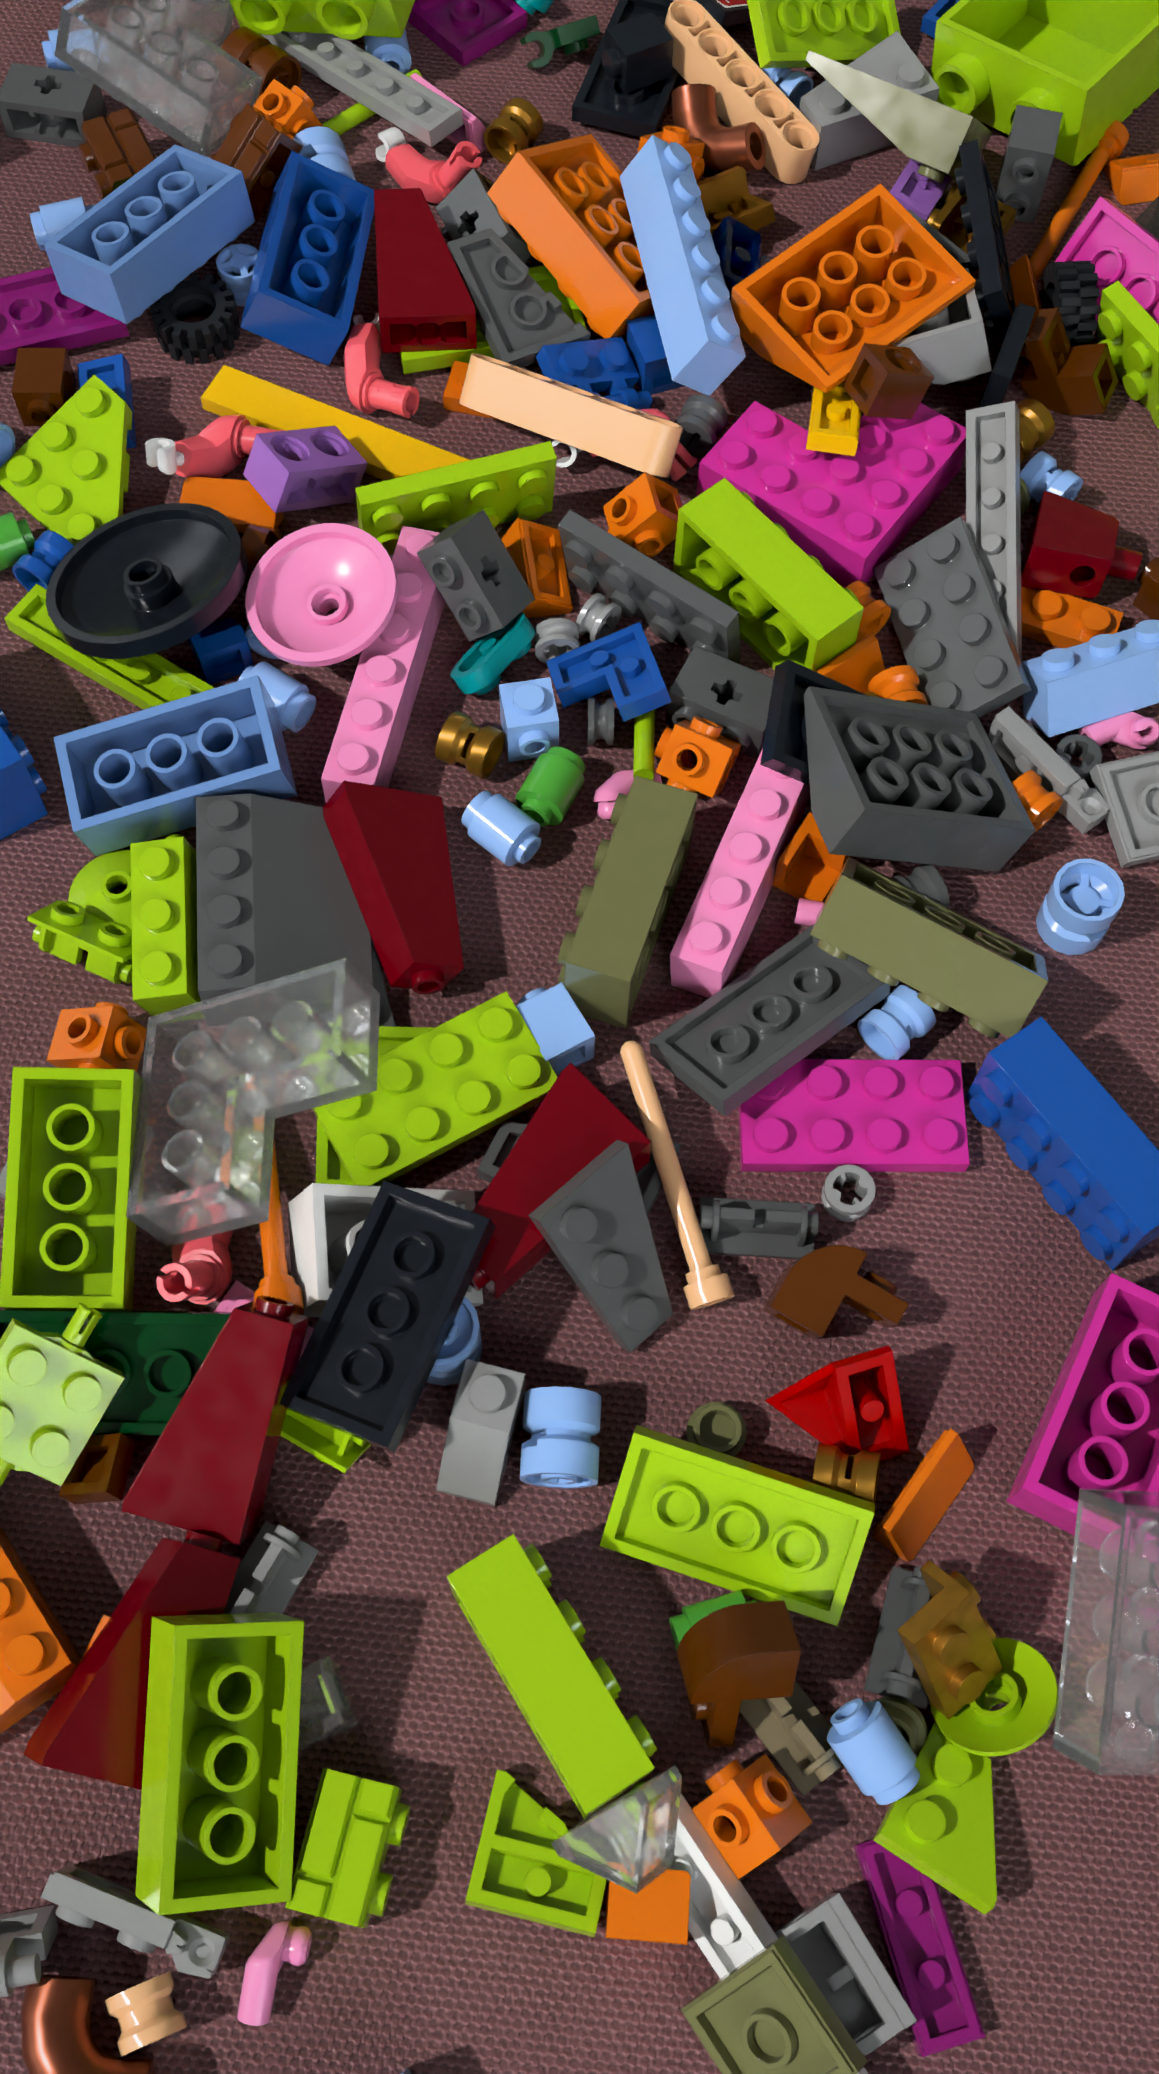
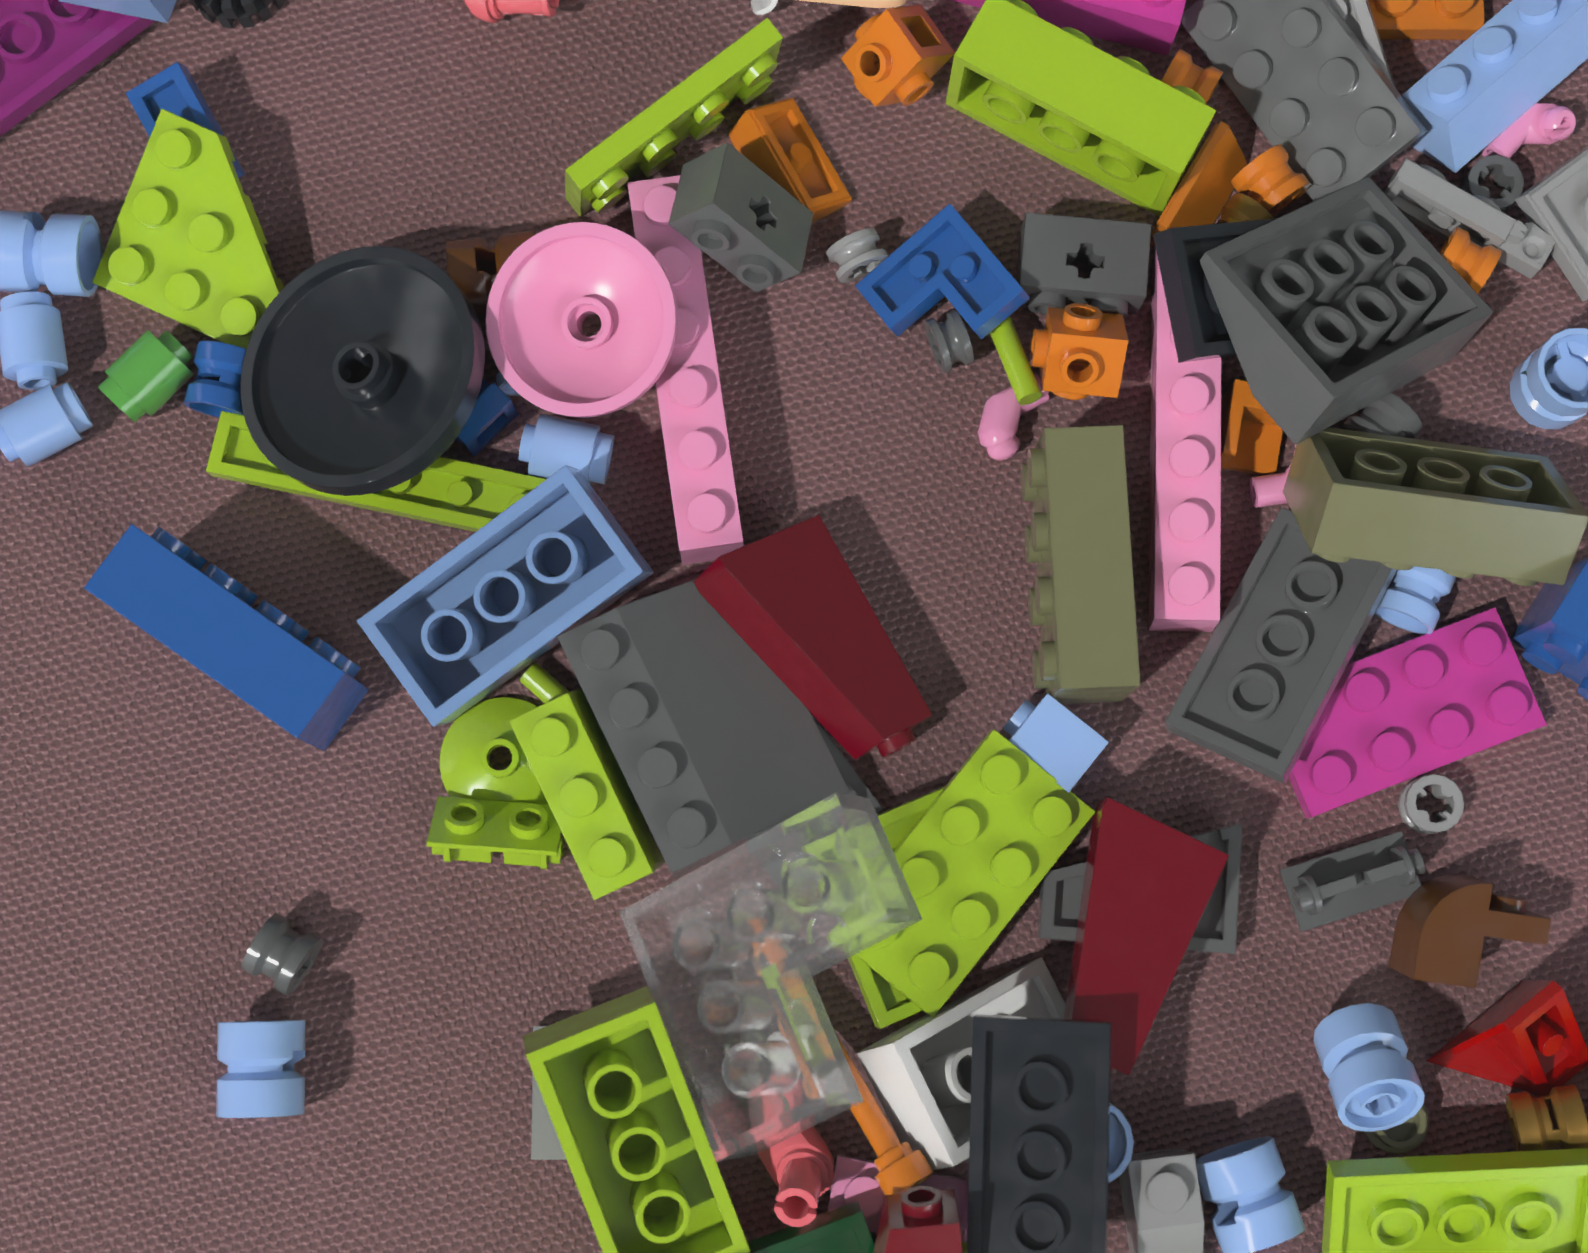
camera: 20 degrees left, 15 degrees up
(42, 383) = (96, 136): reddish brown brick -> none
(97, 1038) = (573, 957): orange brick -> none
(208, 454) = (347, 145): coral arm -> none
(233, 498) = (402, 213): orange slope -> none
(278, 408) = (477, 66): yellow tile -> none
(304, 468) = (470, 140): medium lavender brick -> none
(469, 744) = (801, 423): pearl gold wheel -> none
(485, 661) = (791, 308): teal plate -> none
(502, 828) = (896, 521): light blue brick -> none
(528, 718) = (871, 374): light blue brick -> none
(551, 786) = (928, 447): bright green brick -> none
(598, 617) = (892, 207): light grey bush -> none
(607, 1245) = (1222, 978): dark grey wing -> none
(647, 590) = (928, 156): dark grey plate -> none
(704, 1367) = (1368, 1067): none -> light blue wheel
(705, 1281) = (1326, 968): light nougat piece -> none

